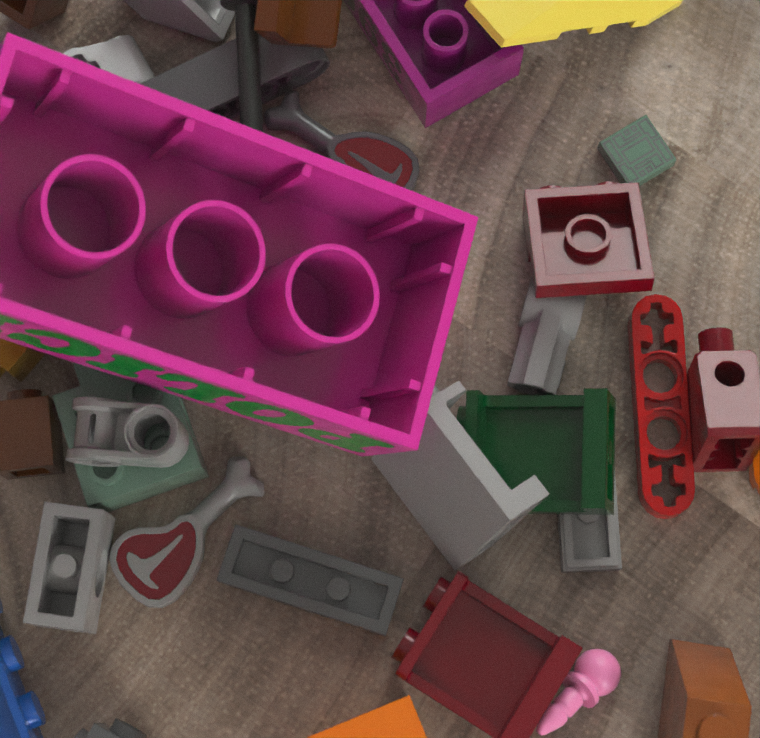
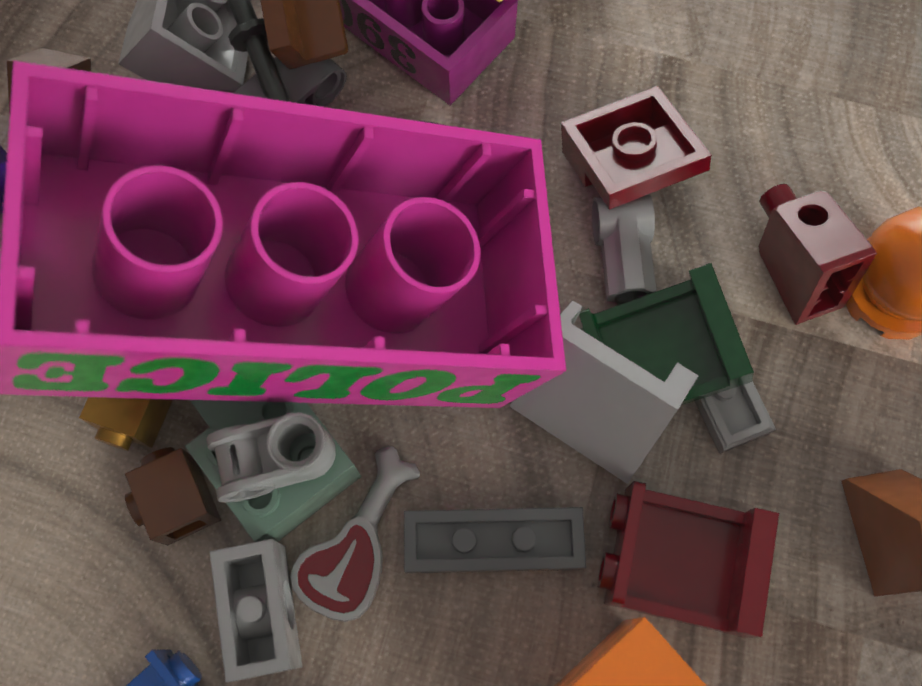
camera: 20 degrees left, 5 degrees down
(594, 675) = (793, 541): bright pink bar -> none
(636, 152) = (640, 67): sand green tile -> none
(666, 405) = (759, 270): red beam -> none

